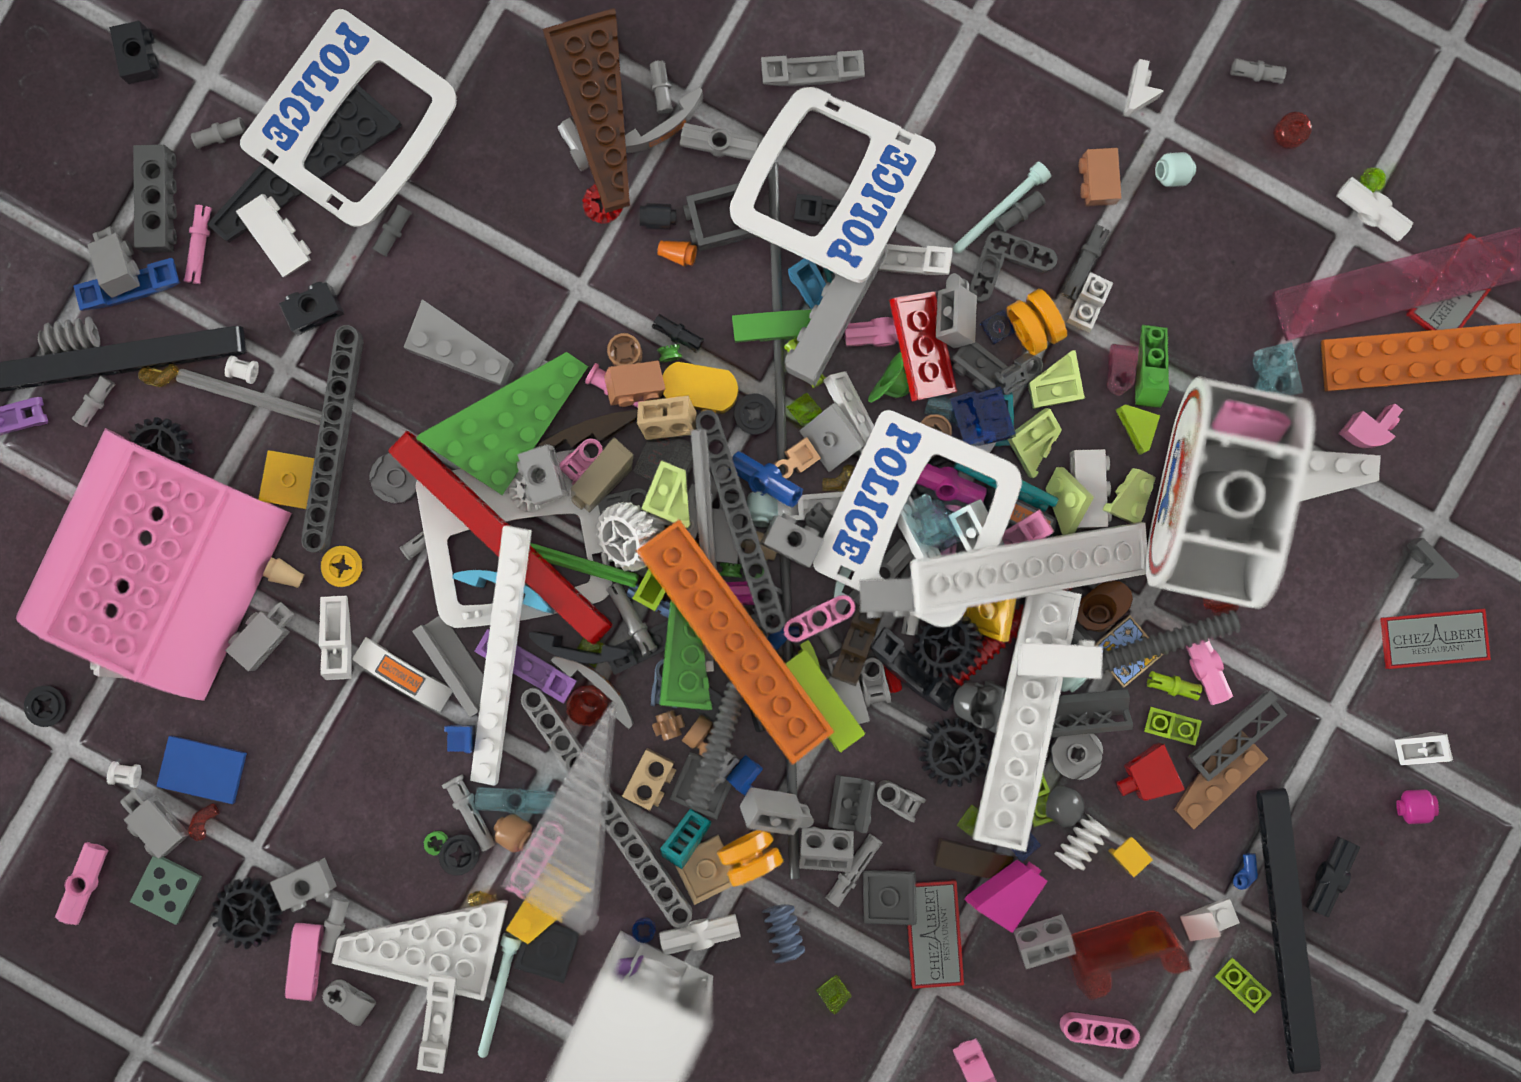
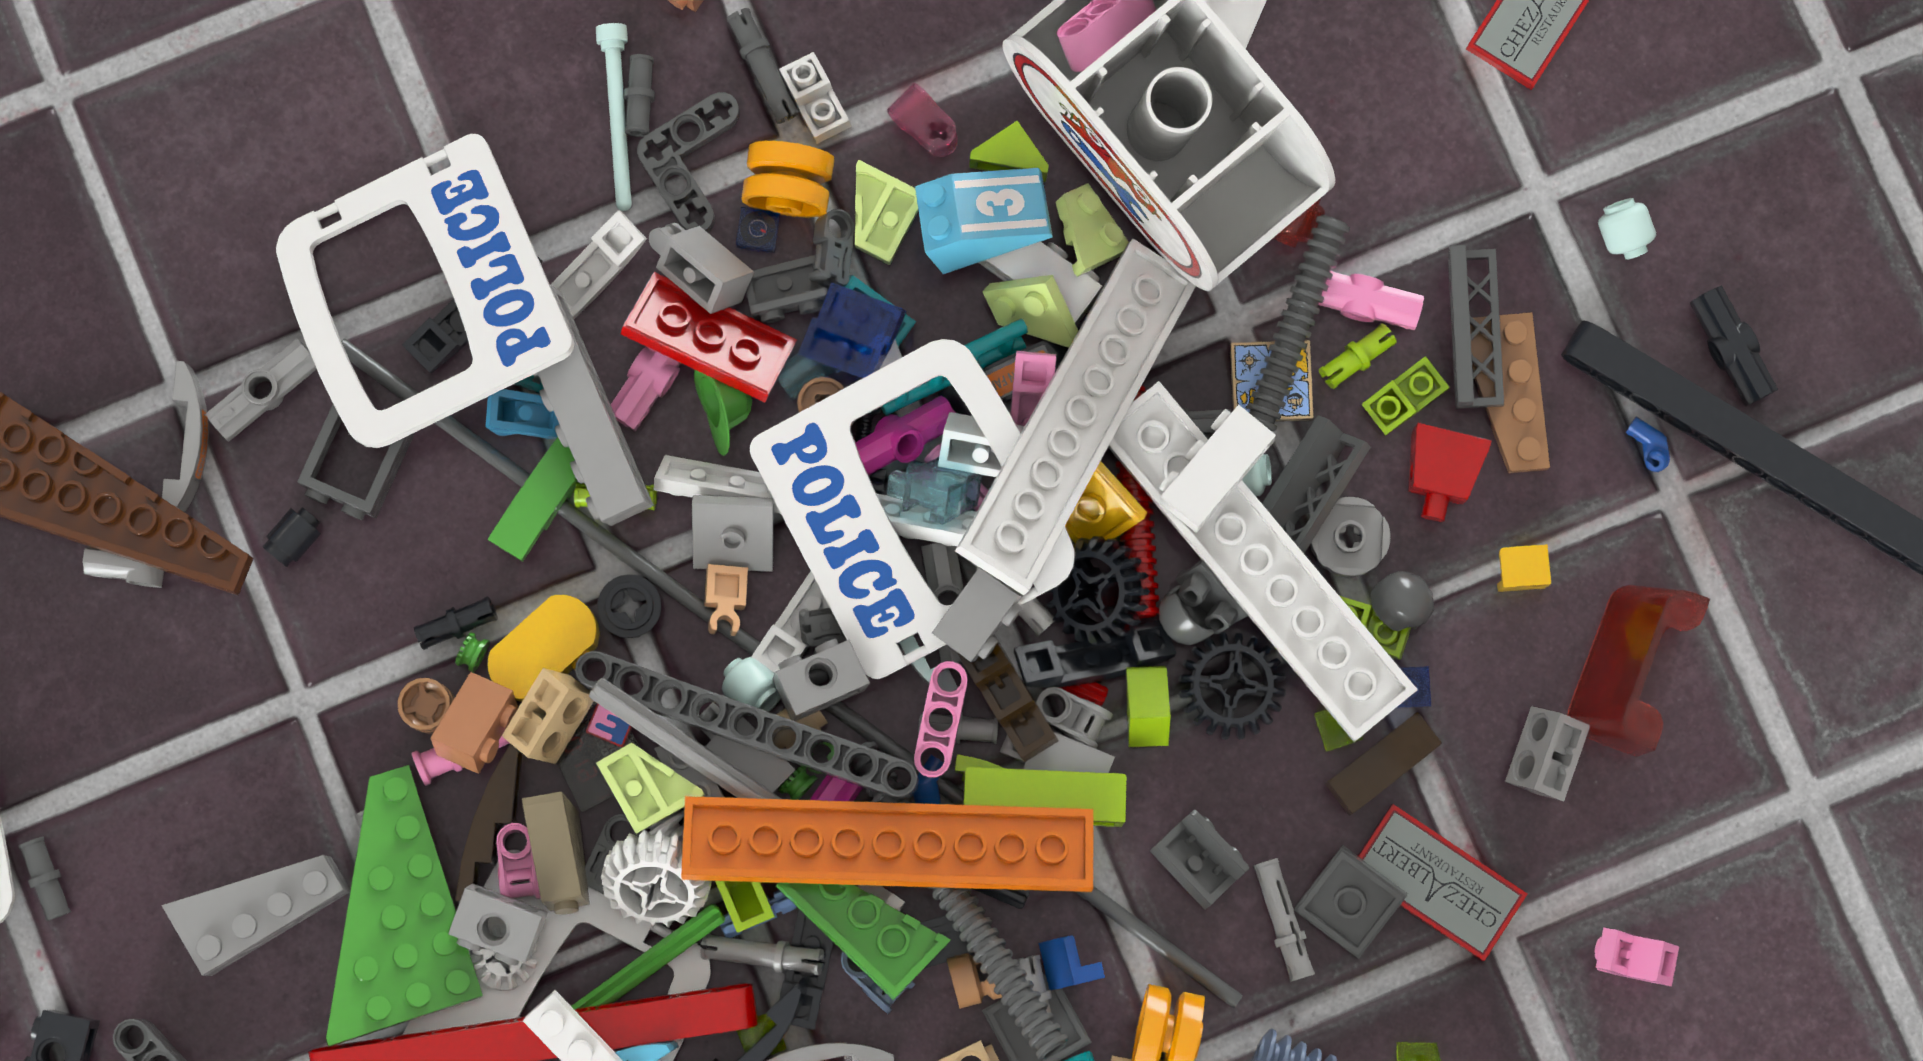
camera: 45 degrees left, 5 degrees down
(593, 209) = (221, 609): red gear -> none
(661, 87) = (138, 408): light grey axle -> none
(668, 725) = (928, 1010): medium nougat gear -> none
(678, 252) = (357, 544): orange cone -> none
(684, 452) = (608, 727): none -> tile
(766, 479) = (721, 653): blue piece -> none
(774, 811) = (1135, 959): light grey brick -> none
(804, 409) = (672, 541): clear neon green slope -> none
(812, 70) = (266, 209): light grey slope -> none
(826, 855) = (1237, 938): light grey brick -> none
(839, 483) = (796, 566): clear yellow arm -> none
(902, 802) = (1246, 794): light grey piece -> none
(909, 717) = (1148, 706): none -> lime slope
(1008, 894) = (1456, 751): dark pink slope -> none
(1035, 440) = (929, 294): yellowish green wing -> none
(1082, 843) = (1463, 614): white piece -> none
(1096, 436) = (981, 215): none -> medium azure slope
(1104, 606) = (1195, 365): reddish brown piece -> none
(1110, 1036) = (1725, 764): bright pink beam -> none
(1152, 367) = (952, 84): bright green slope -> none
(1209, 920) = (1674, 534): white slope -> none
(1243, 985) = (1784, 555): lime slope -> none
(1352, 774) = (1627, 228): none -> light aqua head
(1417, 806) = (1725, 180): dark pink head -> none
(1424, 748) = (1660, 120): white slope -> none

